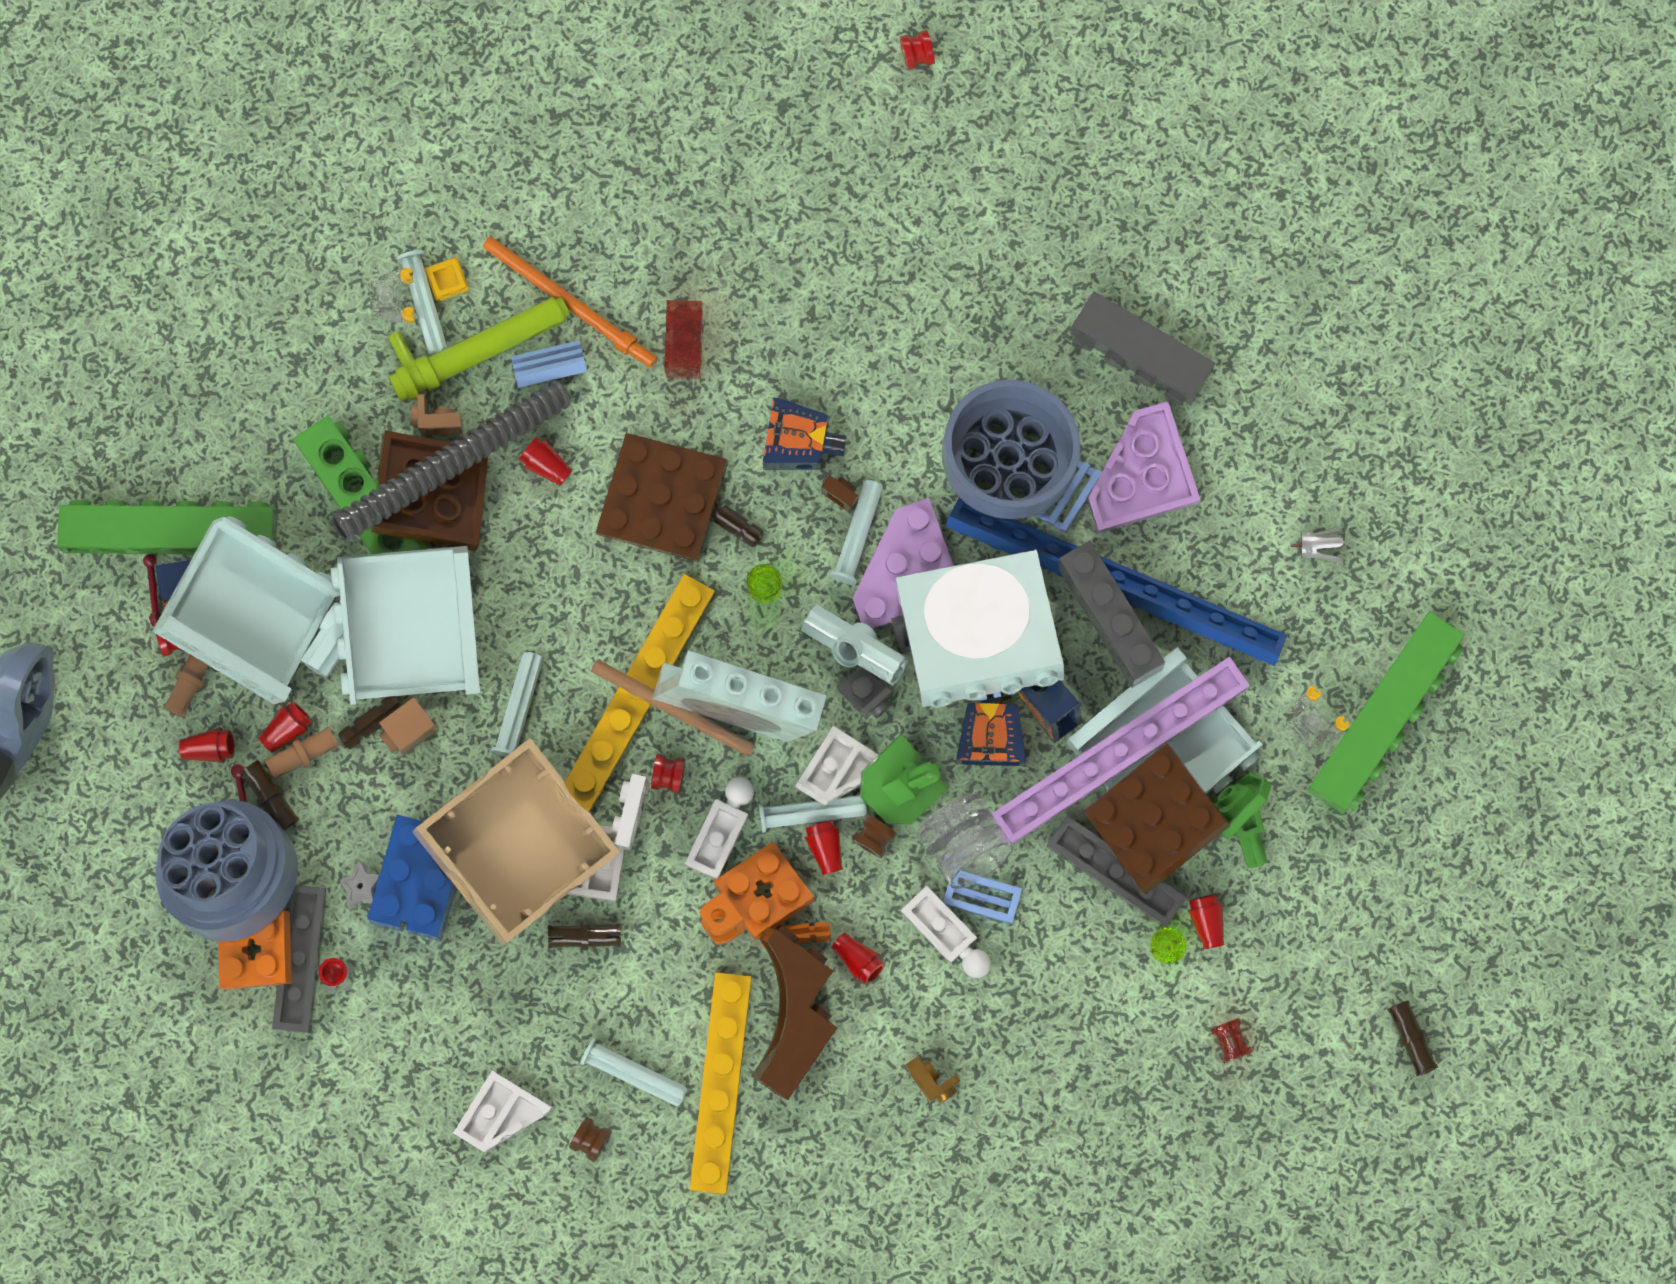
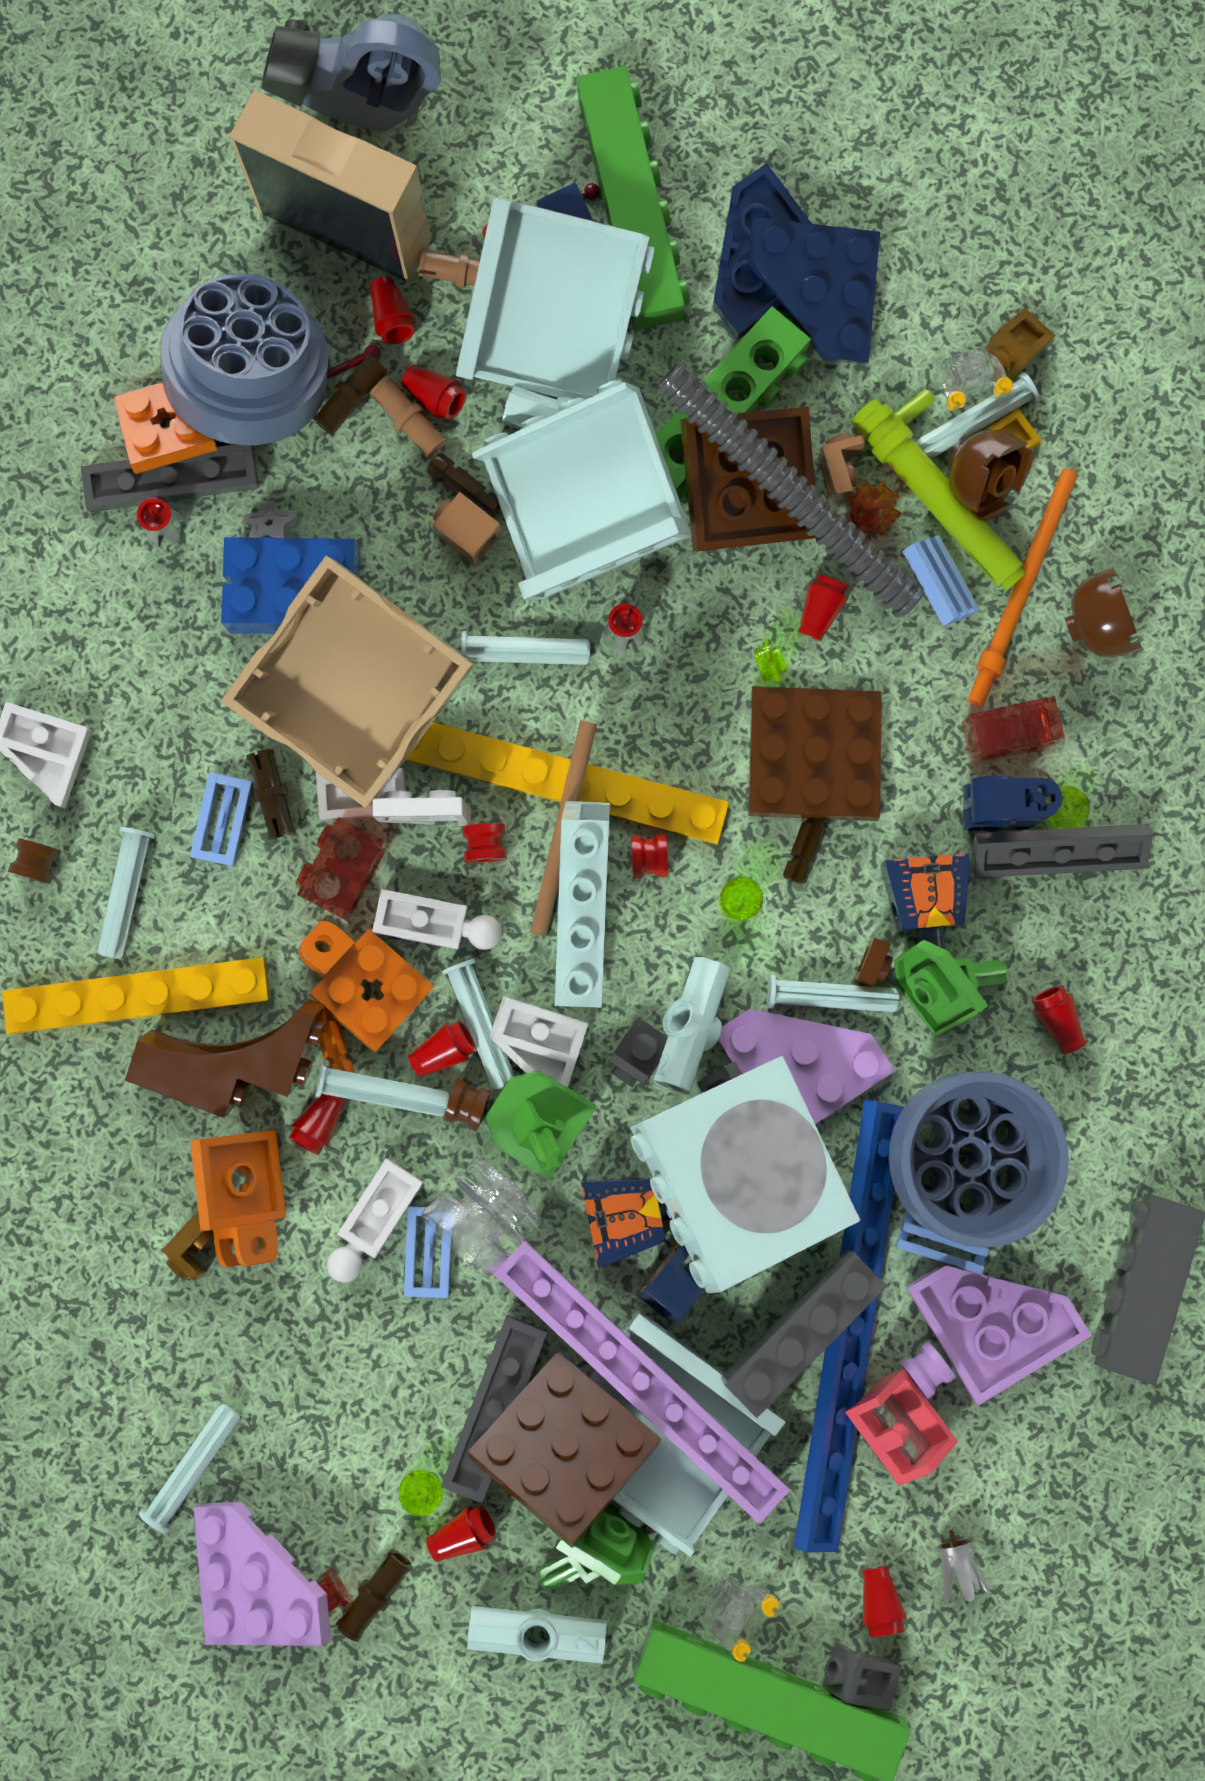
camera: 75 degrees right, 5 degrees up
(109, 757) = (332, 185): none -> tile
(243, 433) = (739, 293): none -> dark blue plate
(281, 395) = (821, 281): none -> dark blue plate
(372, 253) = (1019, 342): none -> pearl gold bracket
(470, 305) = (987, 470): none -> reddish brown cylinder
(477, 401) = (873, 508): none -> clear red gear
(520, 618) = (625, 624): none -> red piece
(566, 968) = (238, 823): none -> light blue tile
(579, 512) = (770, 661): none -> clear neon green plate
(612, 247) = (1102, 617): none -> reddish brown cylinder
(667, 885) = (352, 874): none -> clear red brick
(713, 643) = (649, 856): none -> red wheel
(740, 360) = (1001, 802): none -> dark blue piece
(755, 313) = (1073, 811): none -> clear neon green plate
(788, 327) = (1061, 850): none -> dark grey plate
(846, 902) = (381, 1091): none -> light aqua axle
(872, 444) = (943, 986): none -> bright green piece
(913, 1033) = (244, 1213): none -> orange plate
(918, 362) = (1060, 1018): none -> red cone
(1106, 1121) = (190, 1469): none -> light aqua axle
(1165, 531) = (928, 1370): none -> lavender wheel
(1203, 561) = (902, 1427): none -> coral window
(1207, 1089) = (251, 1584): none -> lavender plate
(1238, 999) = (374, 1595): none -> dark brown pin
(1302, 857) = (505, 1633): none -> light aqua piece
(1332, 611) = (881, 1603): none -> red cone
(1384, 640) = (861, 1677): none -> dark grey bracket

